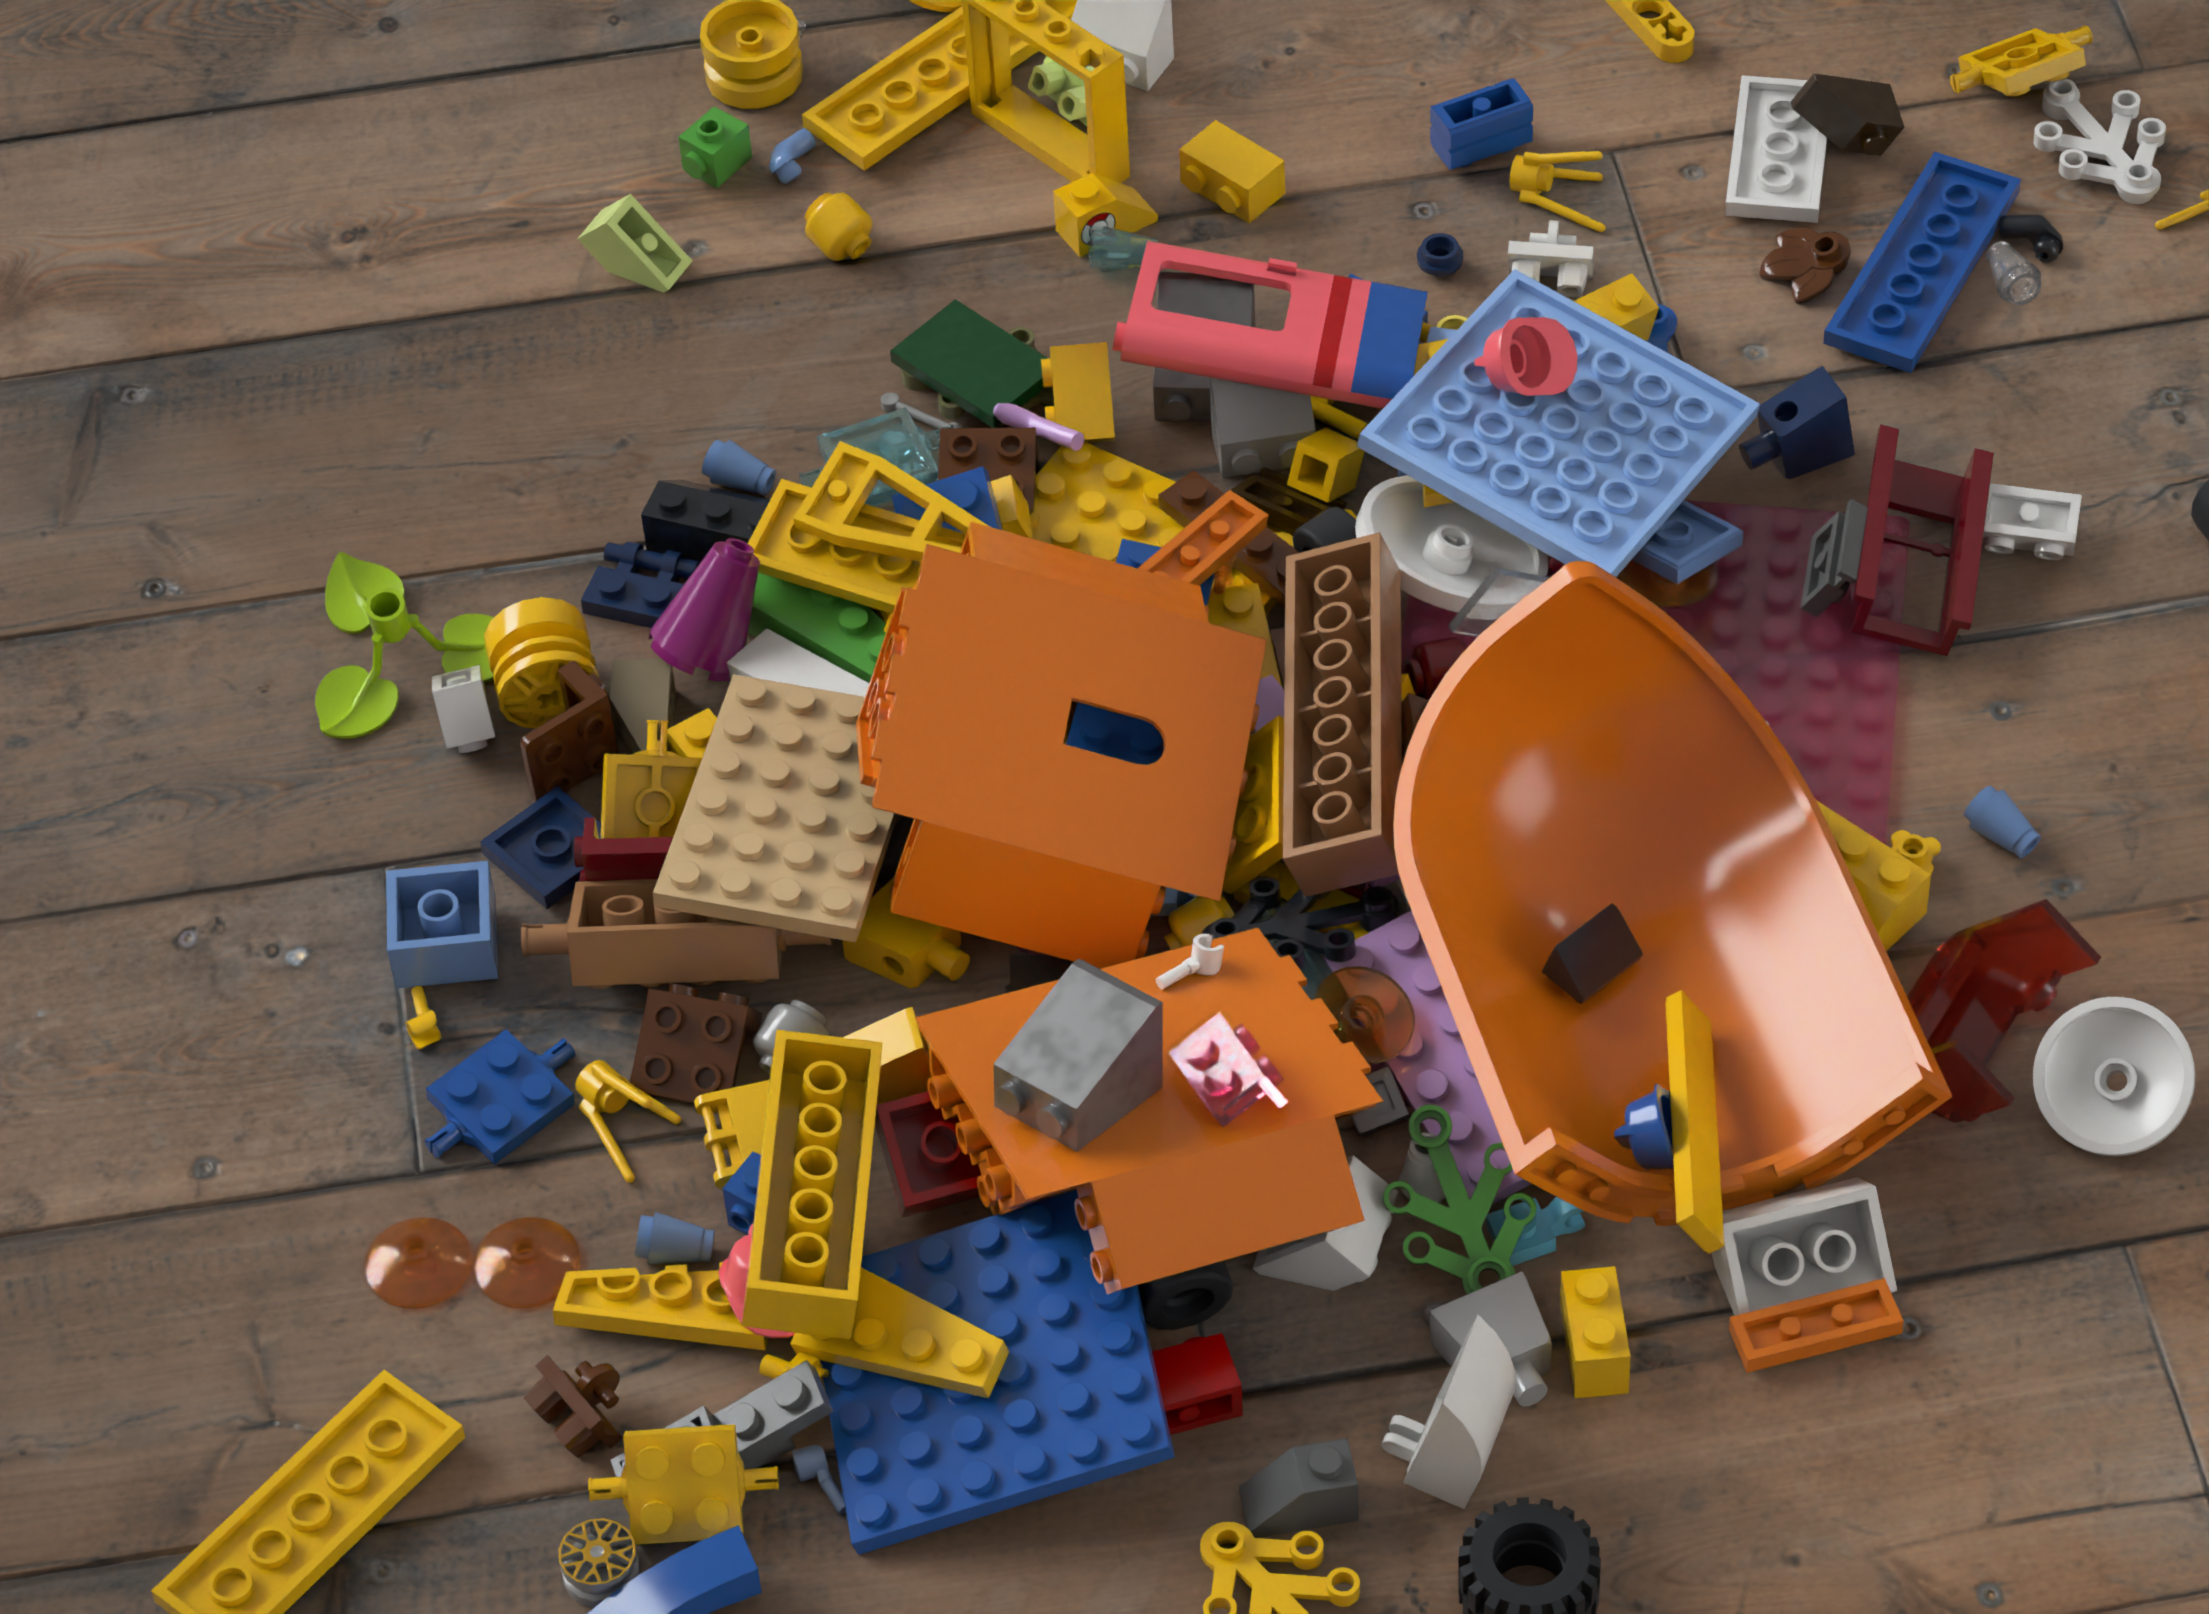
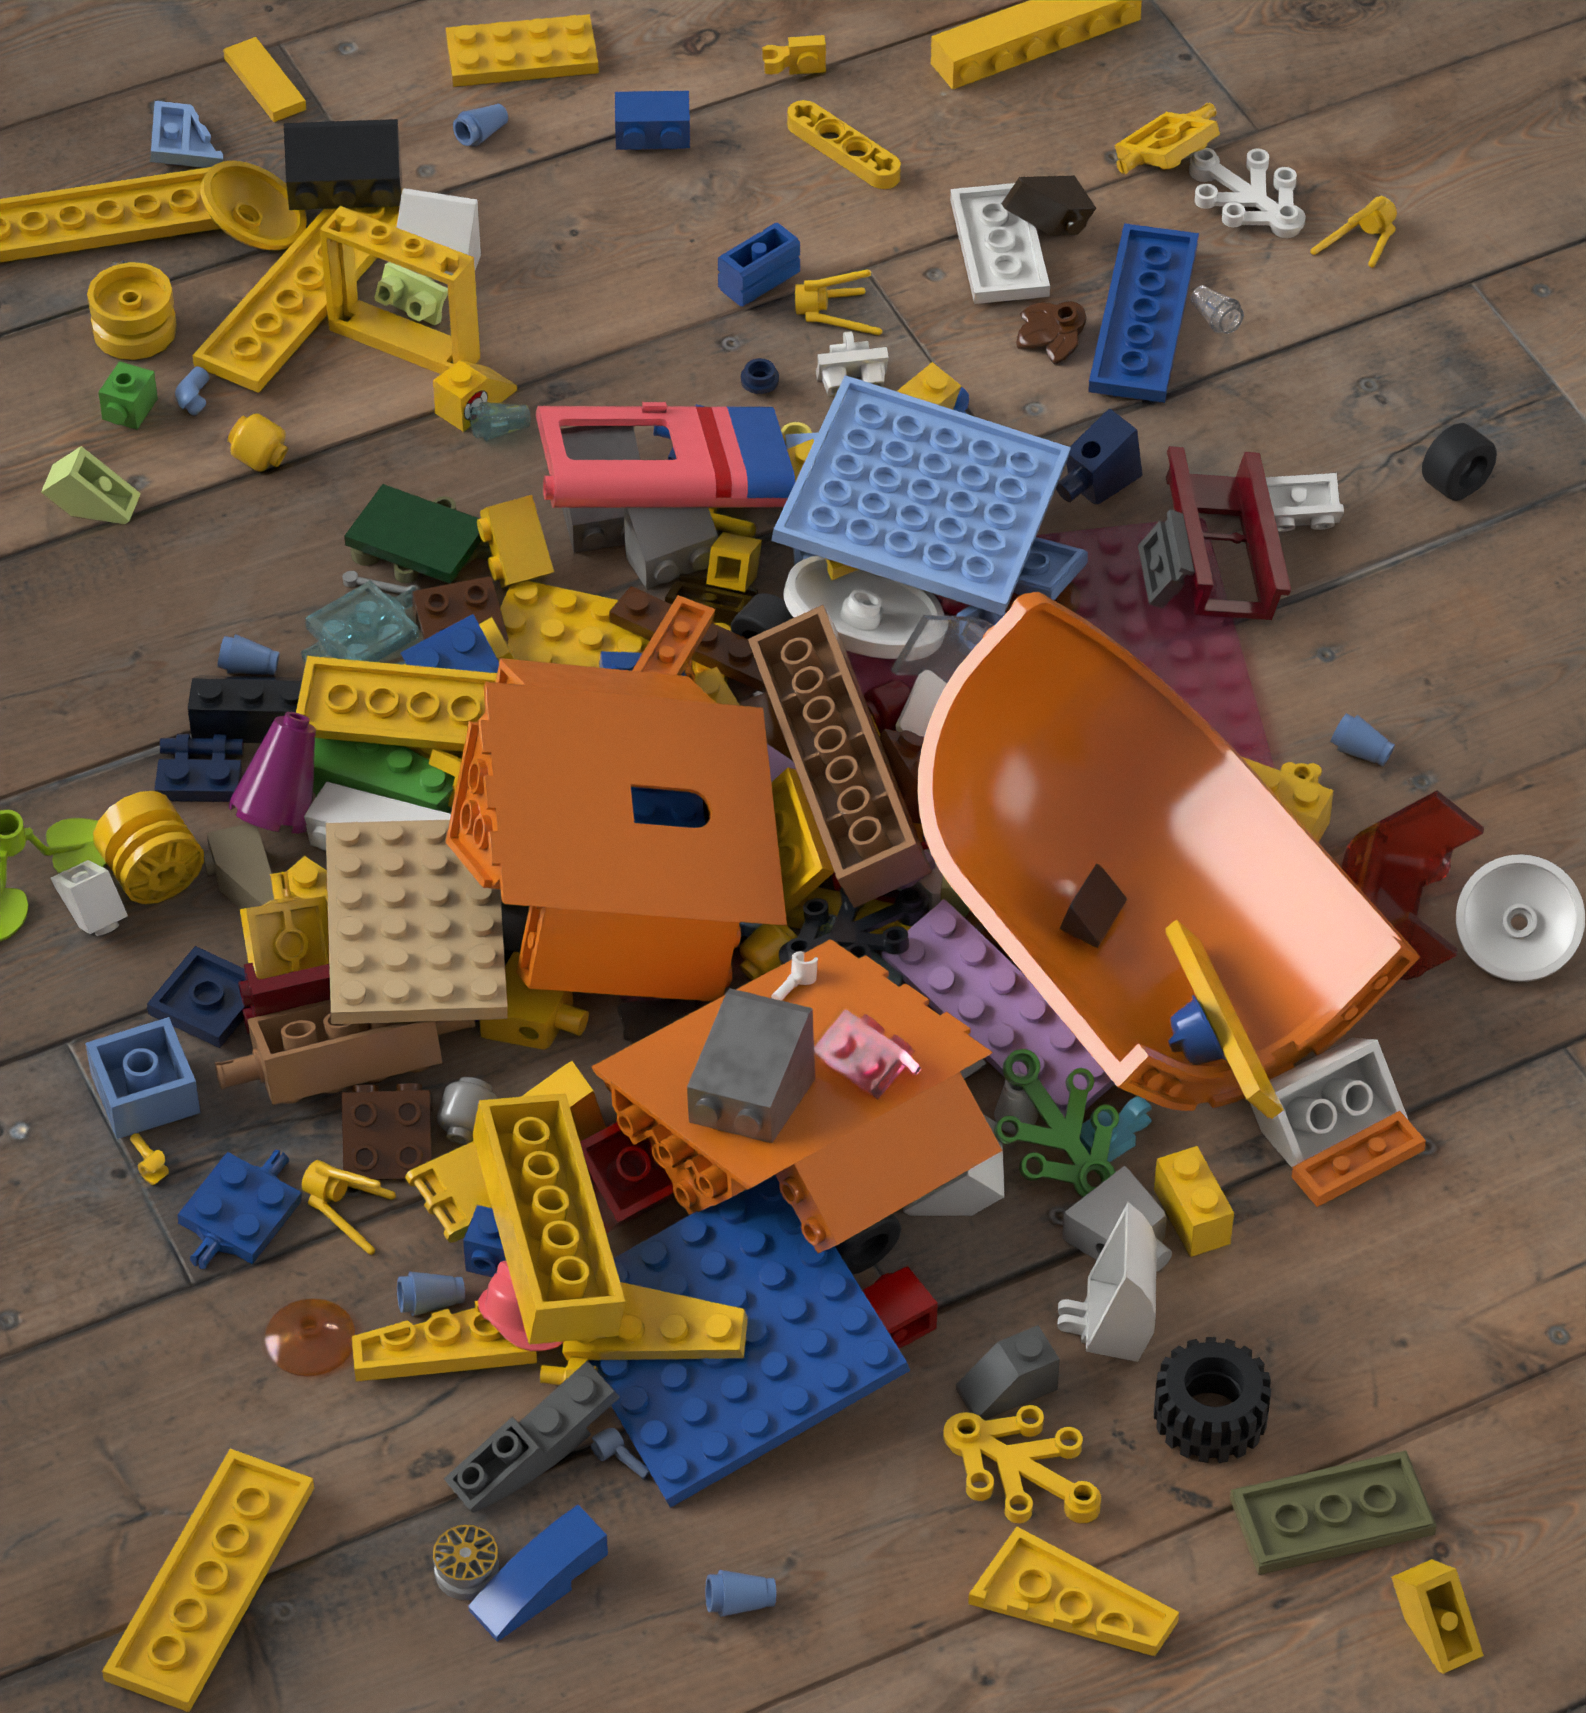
camera: 20 degrees left, 0 degrees up
(423, 1277) = (224, 1370): clear orange dish -> none
(575, 741) = (203, 902): reddish brown bracket -> none
(587, 1422) = (414, 1452): reddish brown hips -> none
(682, 1483) = (516, 1482): yellow plate -> none
(845, 488) = (367, 655): yellow plate -> none
(1021, 418) = (472, 570): lavender piece -> none
(1232, 171) = (567, 338): yellow brick -> none
(1376, 1002) = (940, 981): clear orange dish -> none
(1530, 357) = (887, 443): coral piece -> none
(2038, 230) = (1225, 272): black arm -> none

